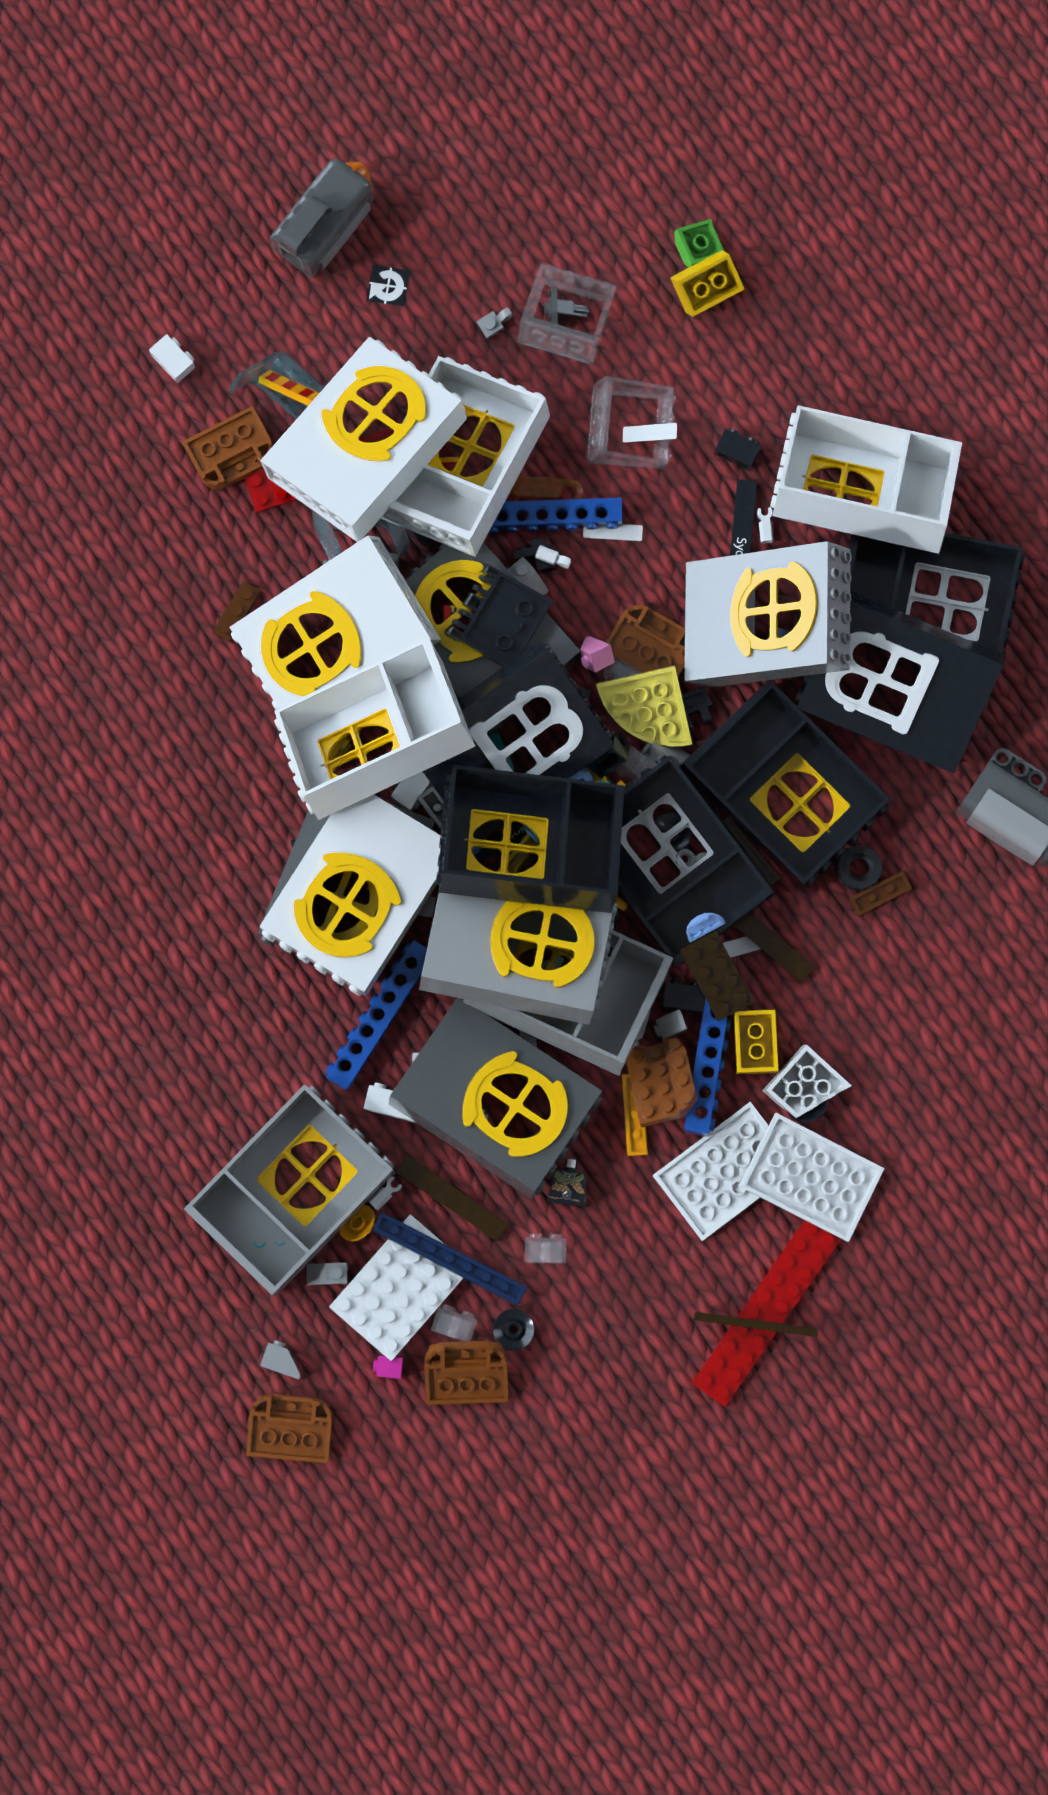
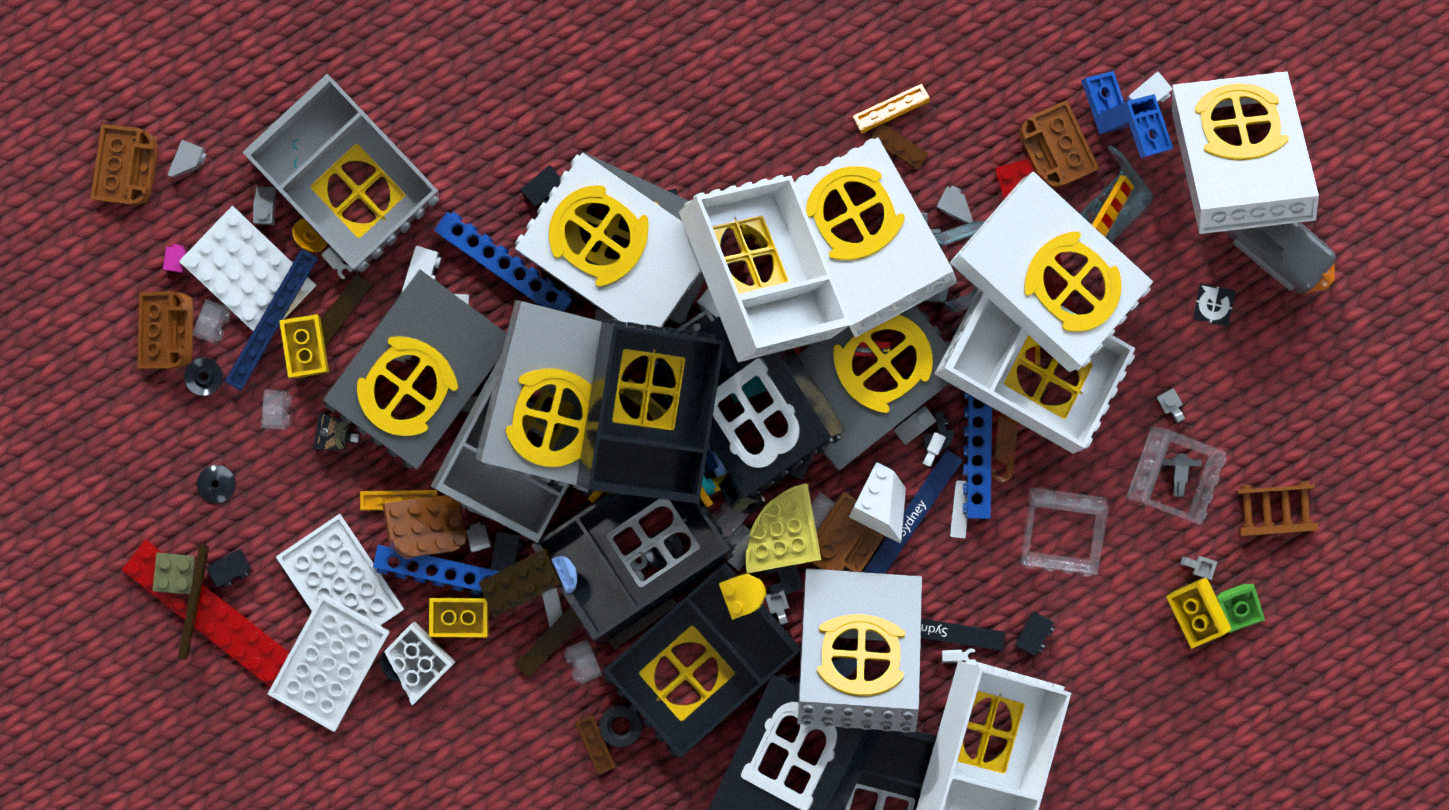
camera: 90 degrees right, 5 degrees up
(194, 359) = (1140, 114): none -> blue bracket
(197, 620) = (891, 108): none -> tile
(263, 243) = (1247, 182): none -> white panel
(295, 978) = (541, 185): none -> black brick
(296, 550) = (955, 205): none -> light grey slope
(476, 1220) = (304, 346): none -> yellow brick
(502, 619) = (872, 397): black hinge -> none
(596, 654) = (836, 485): bright pink slope -> none
(611, 201) = (1268, 526): none -> dark orange fence
(611, 609) = (881, 503): none -> white wedge
(619, 1318) = (225, 488): none -> black dish
(620, 578) = (915, 512): none -> dark blue tile
(650, 432) = (1054, 549): white sticker -> none
(659, 284) = (1202, 566): none -> light grey plate
(716, 741) = (743, 594): none -> yellow slope
(717, 1289) = (230, 568): none -> black brick
(722, 711) = (778, 603): none -> light grey plate
(726, 1348) = (174, 573): none -> olive plate
(794, 909) = (583, 661): none -> clear brick

